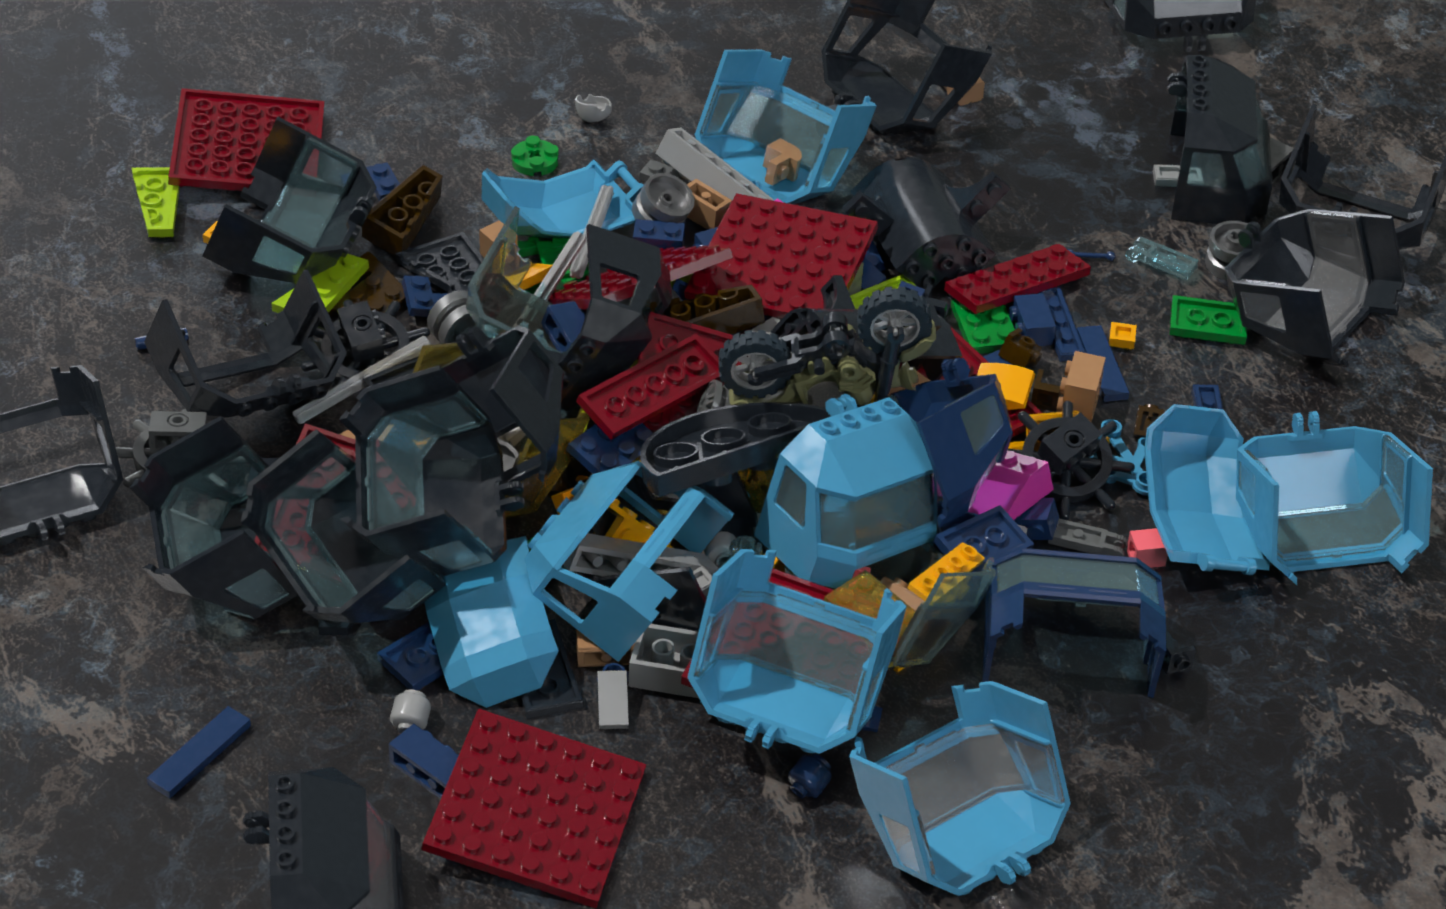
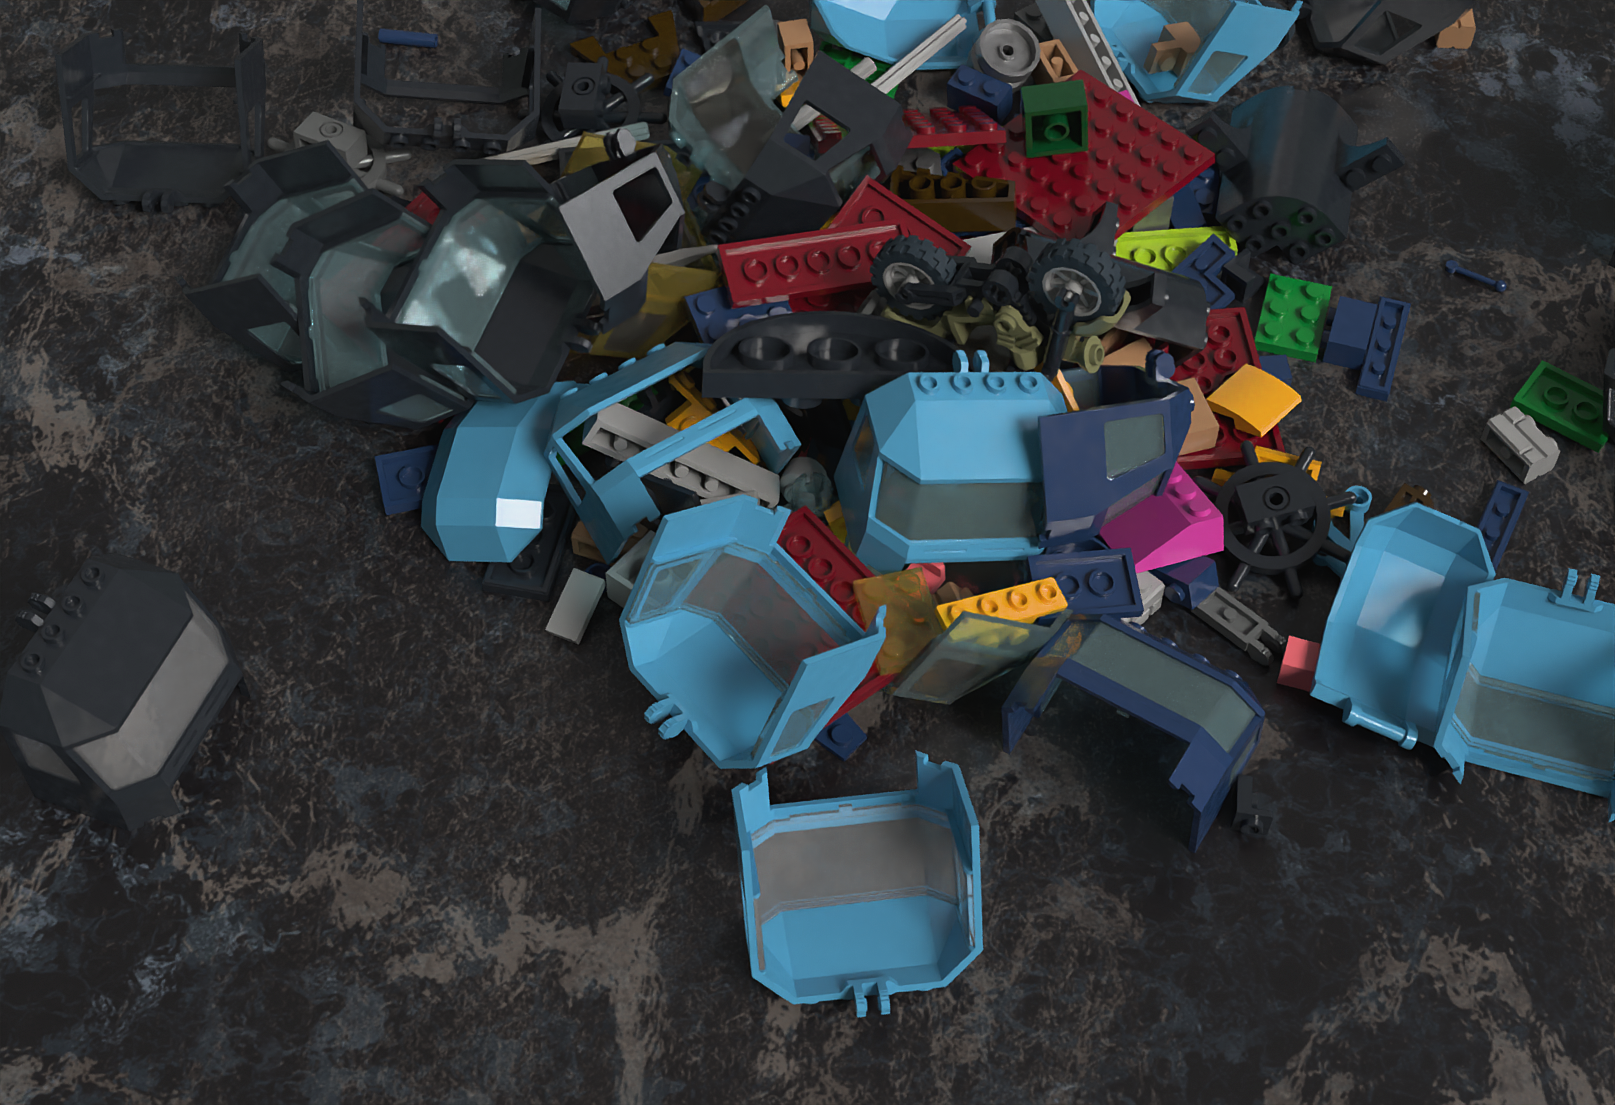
camera: 30 degrees right, 10 degrees up
(198, 752) = (138, 495): dark blue tile -> none
(333, 282) = (595, 38): lime wing -> none
(410, 709) = (362, 536): light grey head -> none
(423, 758) = (347, 605): dark blue brick -> none
(535, 808) = (410, 698): dark red plate -> none
(753, 230) = (1054, 118): none -> dark green brick
(809, 776) = (718, 786): dark blue head -> none
(1015, 277) = (1363, 275): dark red plate -> none
(1020, 350) = (1307, 364): dark brown brick -> none
(1045, 395) = (1306, 428): dark brown panel -> none
(1082, 383) = (1347, 437): medium nougat brick -> none
(1095, 343) = (1403, 414): dark blue tile -> none
(1122, 335) = (1448, 388): light orange plate -> none
(1162, 258) = (1562, 310): clear light blue plate -> none
(1193, 356) = (1520, 444): none -> light grey brick

